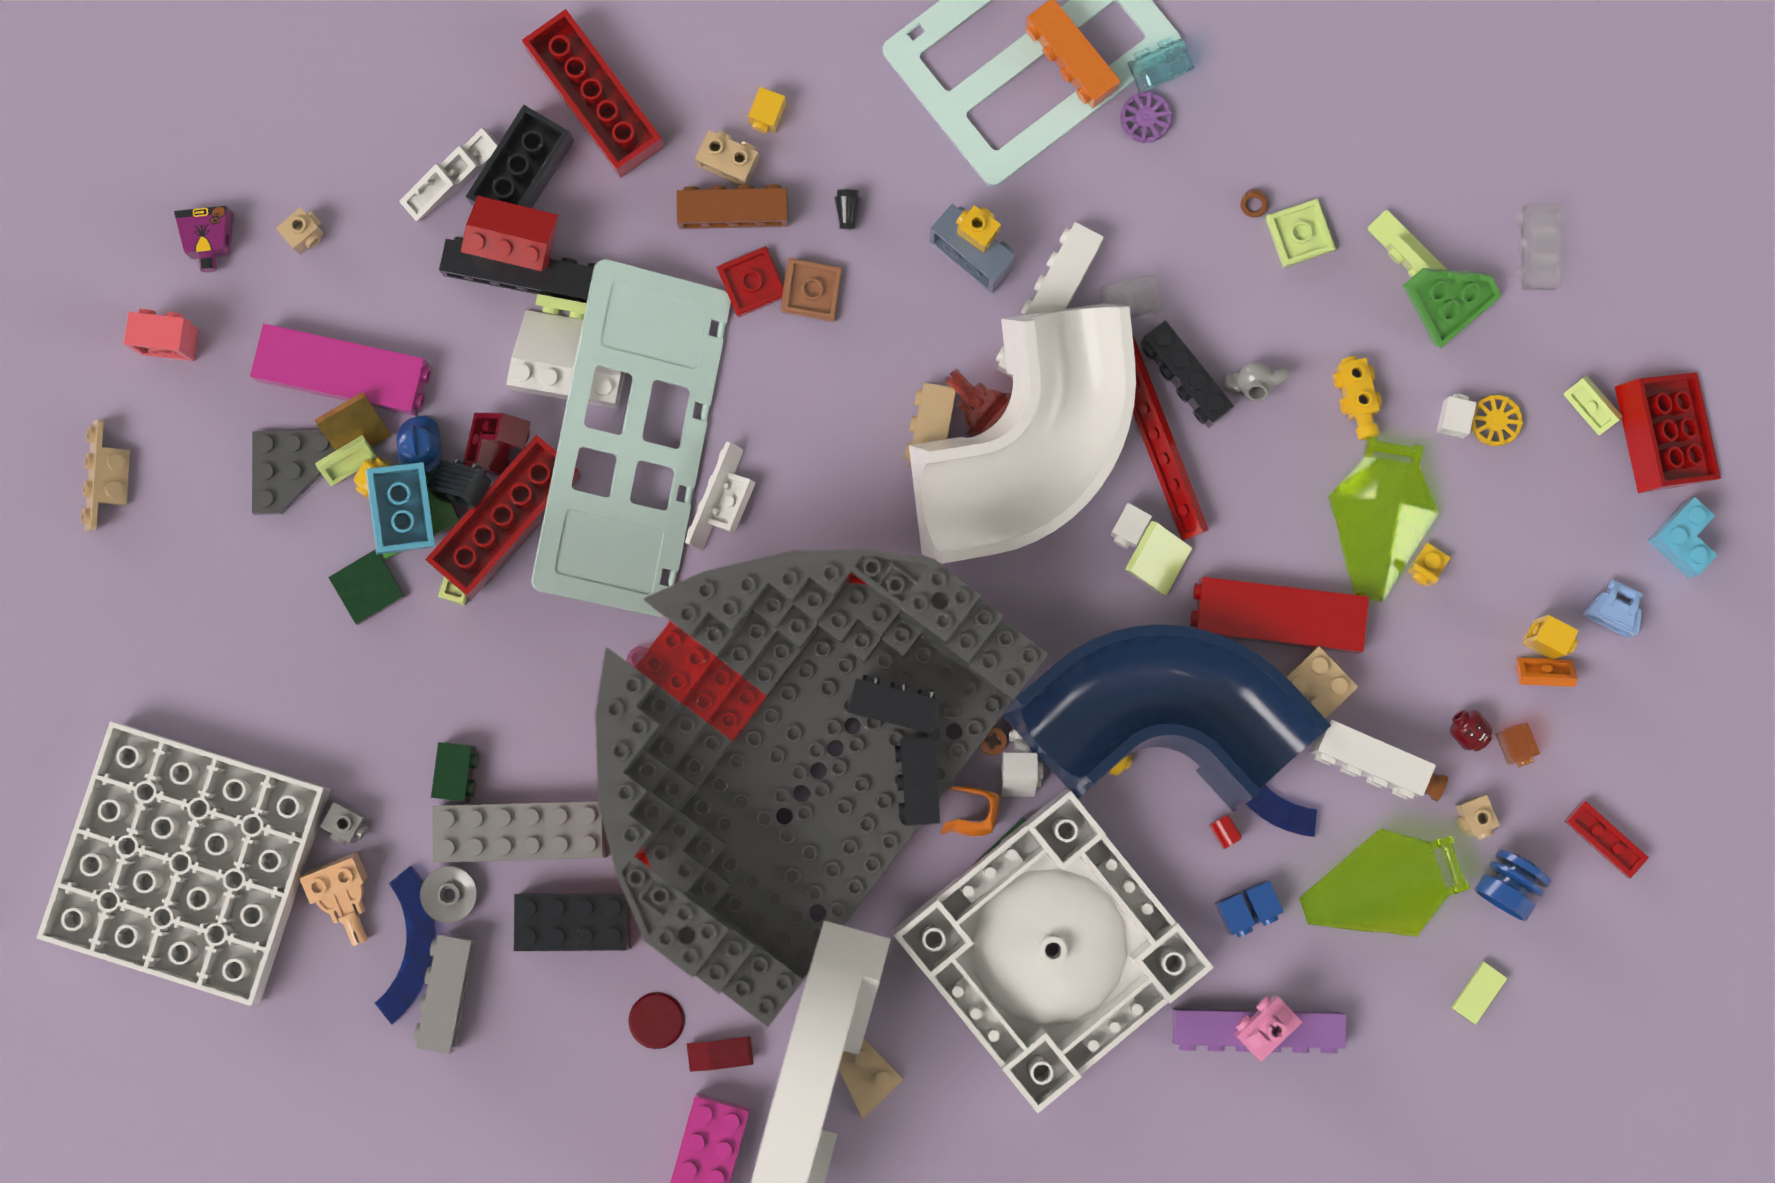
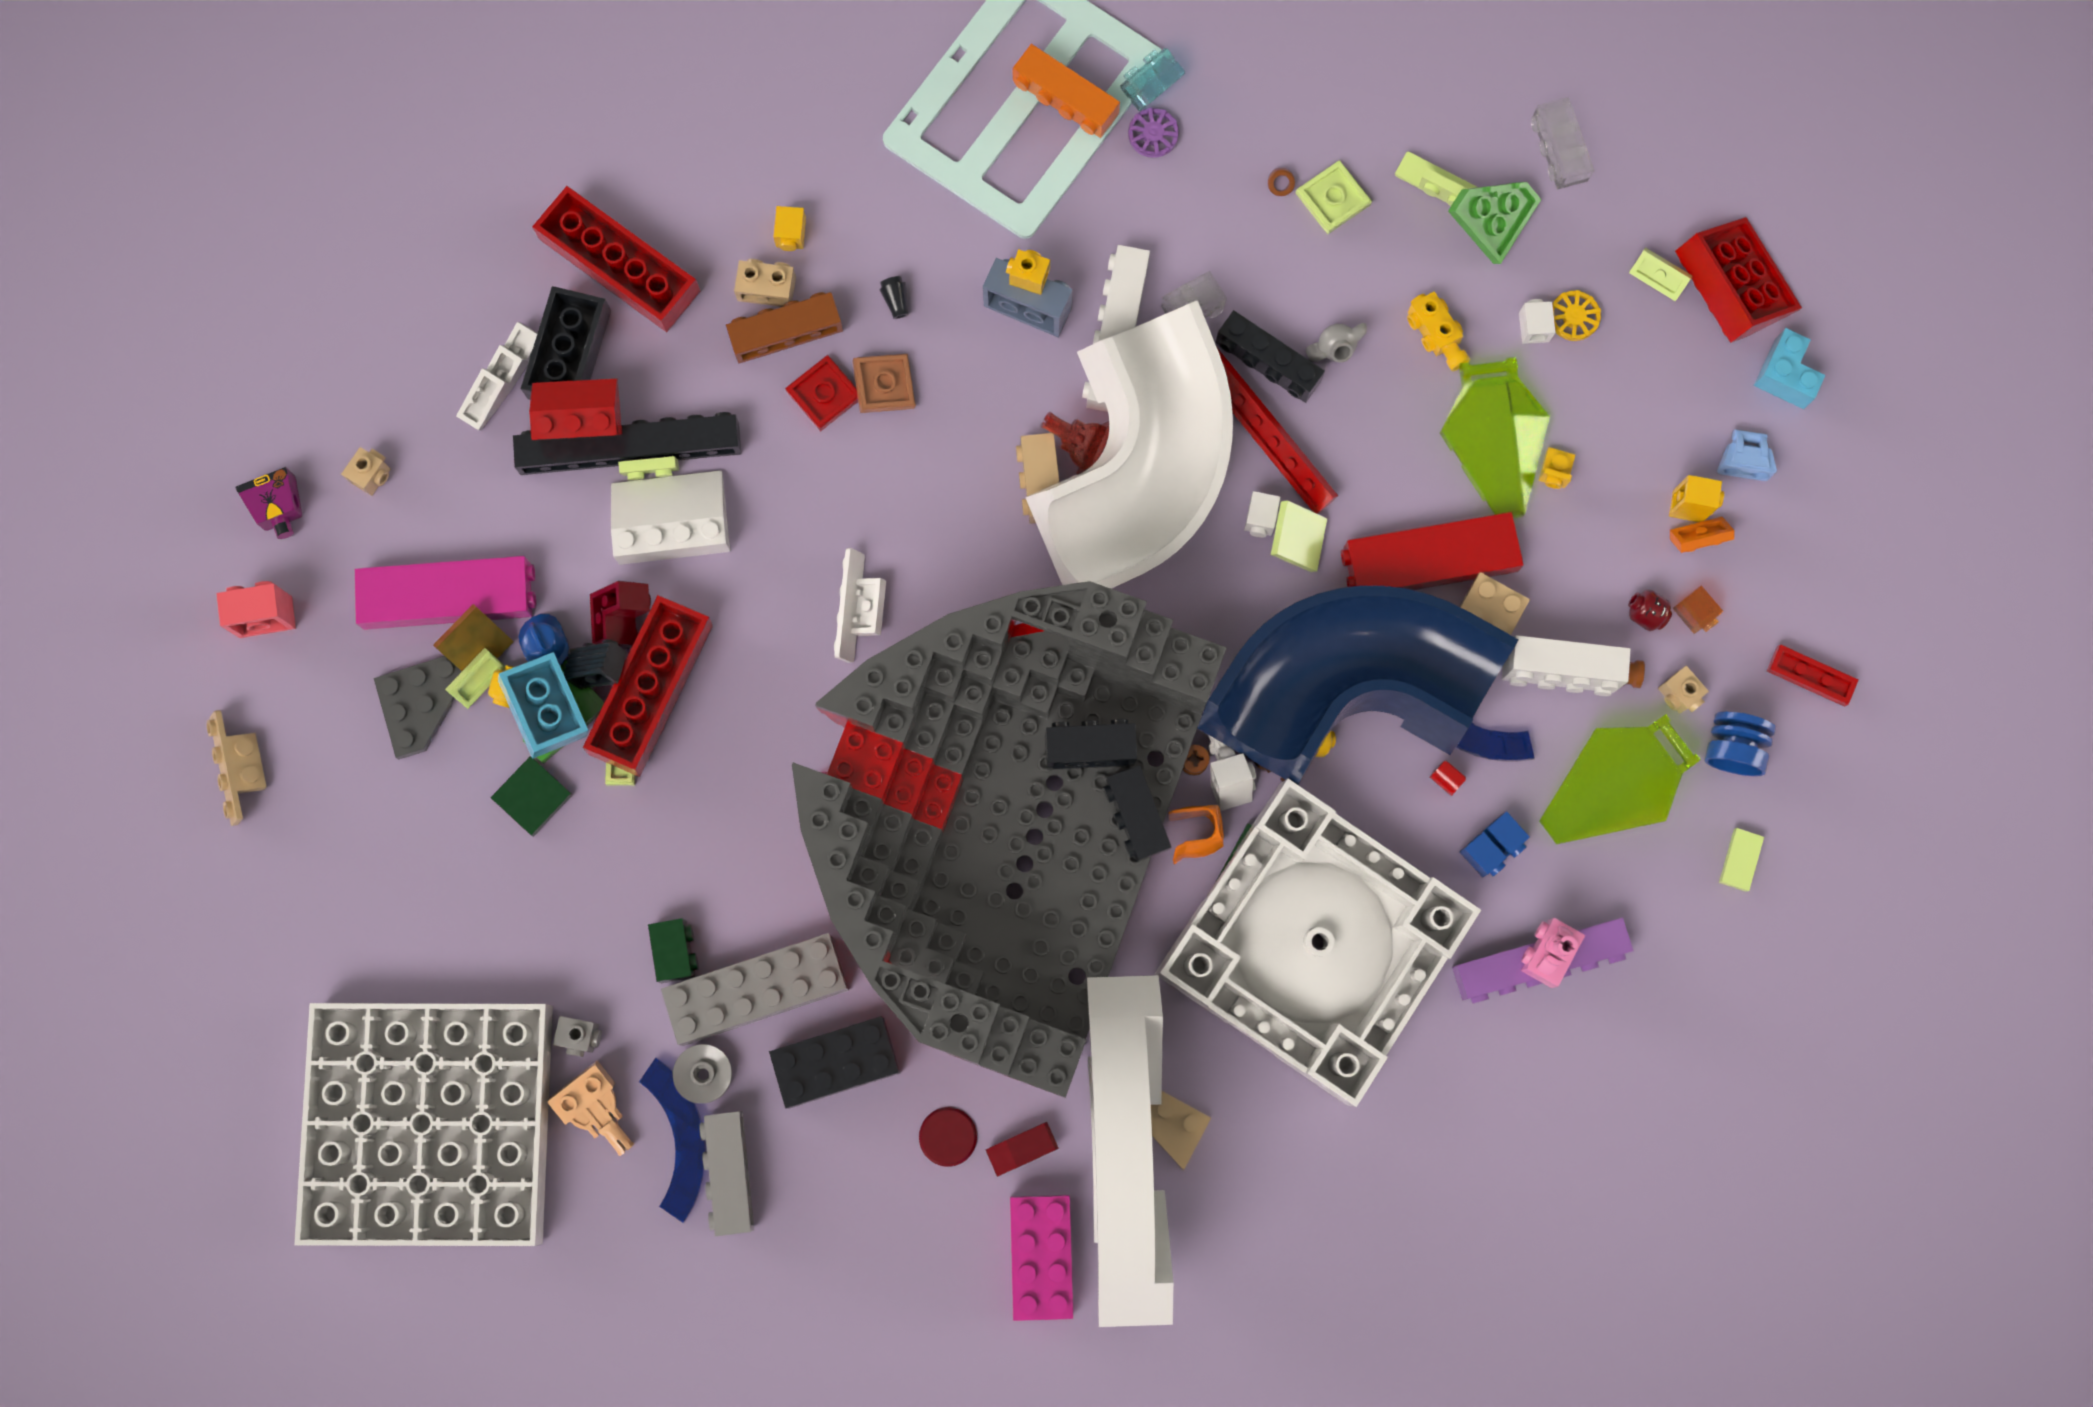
camera: 20 degrees left, 5 degrees down
(654, 331) = (758, 681): light aqua door -> none

